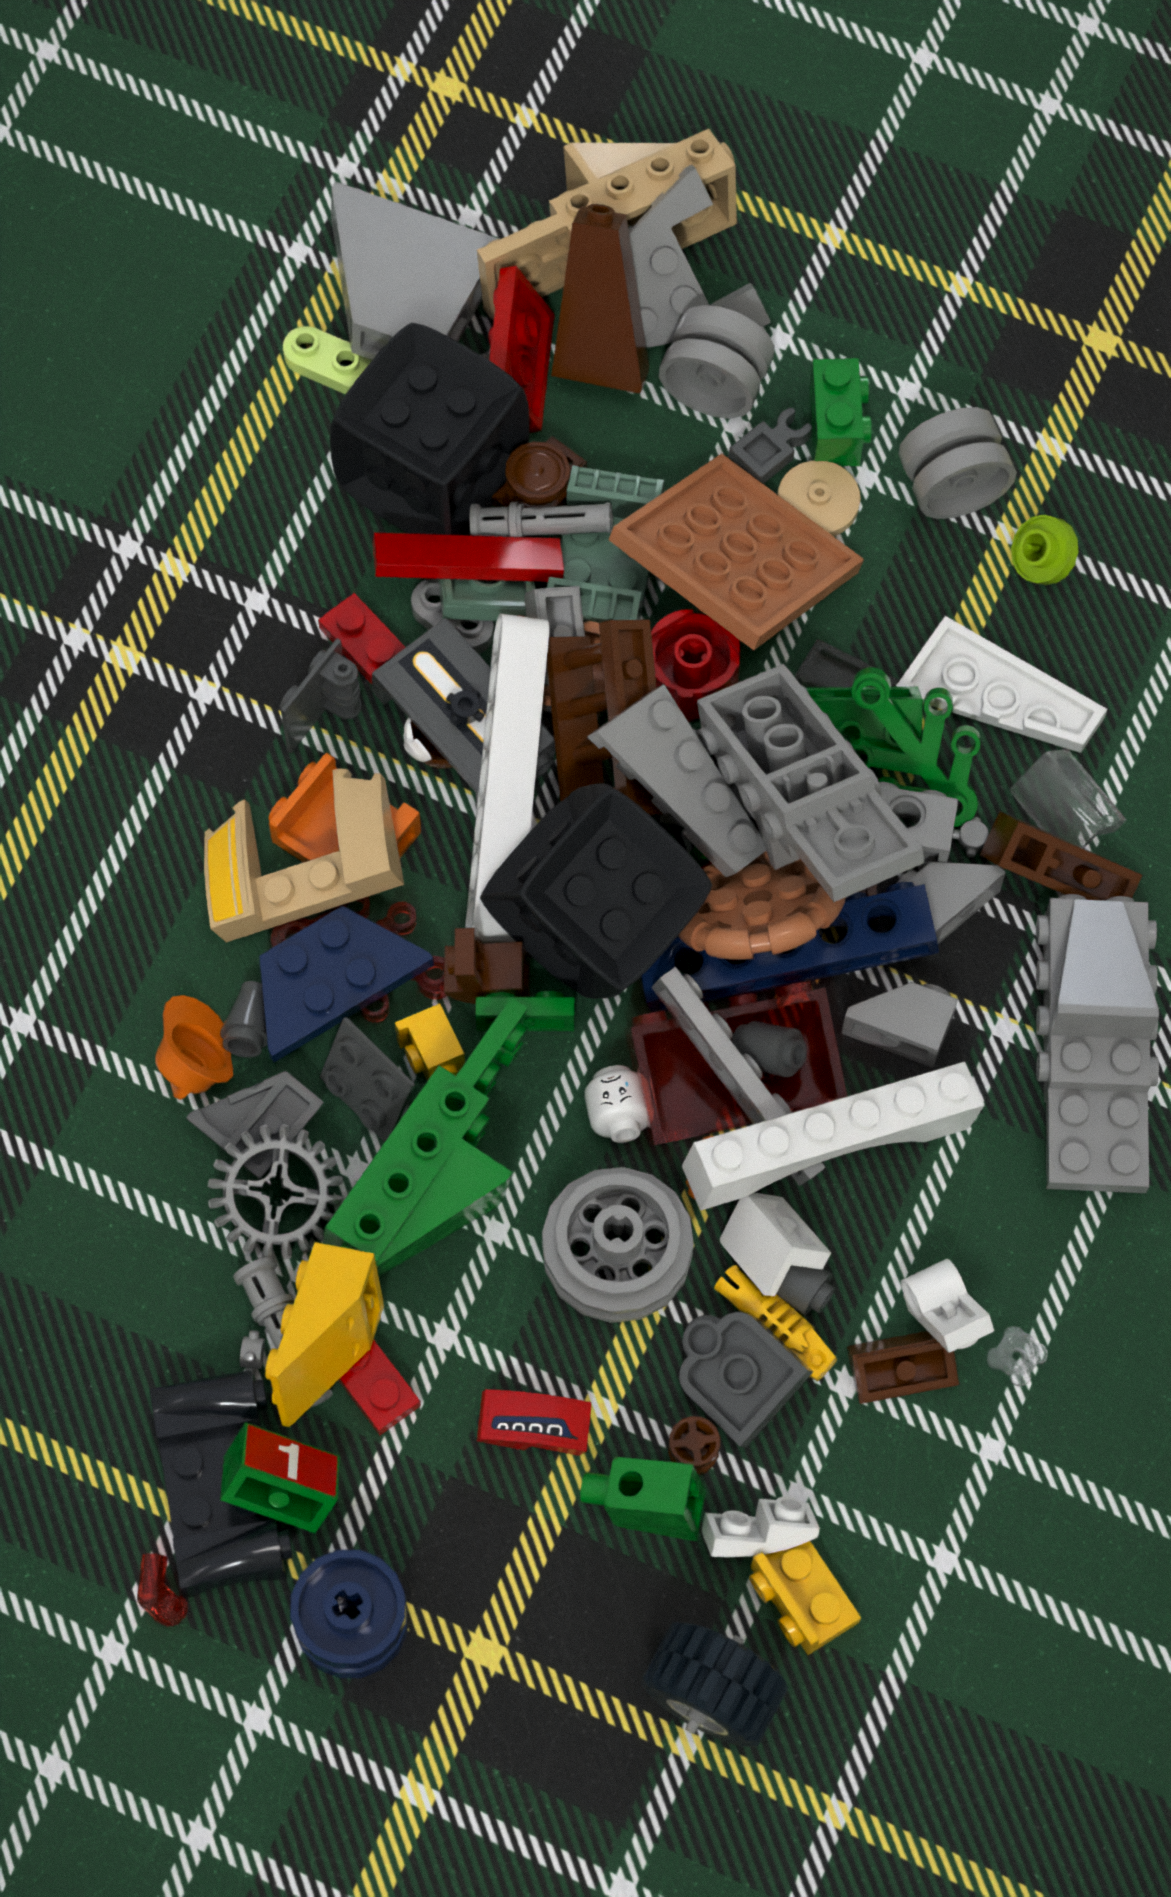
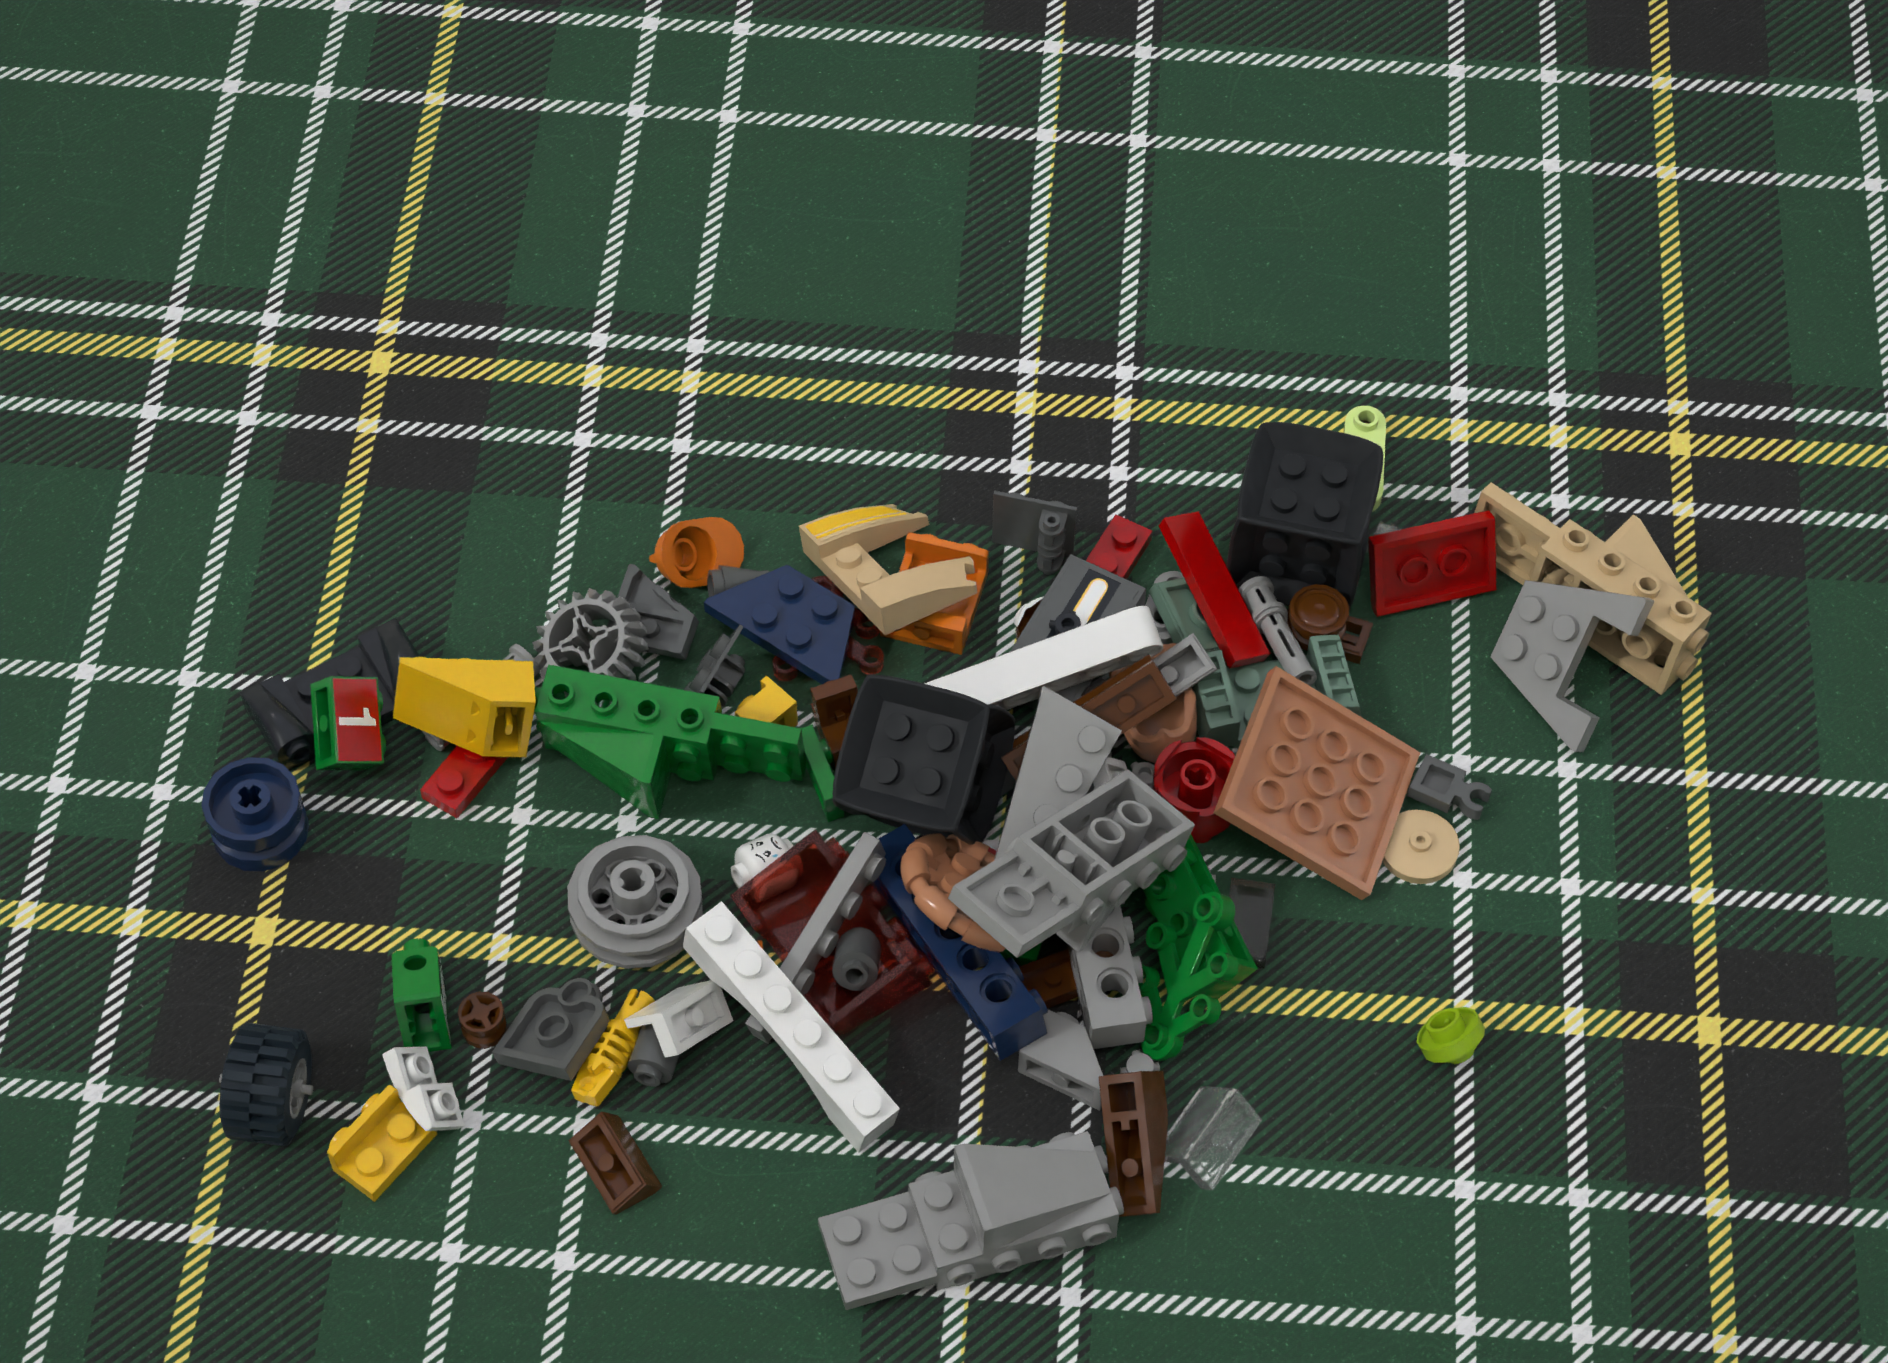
camera: 70 degrees right, 10 degrees down
(155, 1596) = (228, 695): clear red arm -> none
(402, 268) = (1450, 454): light grey slope -> none
(534, 1420) = (465, 897): red slope -> none
(600, 307) = (1496, 597): reddish brown slope -> none
(716, 361) = (1498, 709): light grey wheel -> none
(837, 411) = (1505, 825): green brick -> none
(904, 1021) = (933, 1064): light grey slope -> none
(944, 1306) = (669, 1168): white plate -> none
(957, 463) = (1494, 928): light grey wheel -> none
(1001, 689) = (1294, 1036): white wing -> none
(1017, 1341) = (650, 1237): clear plate -> none

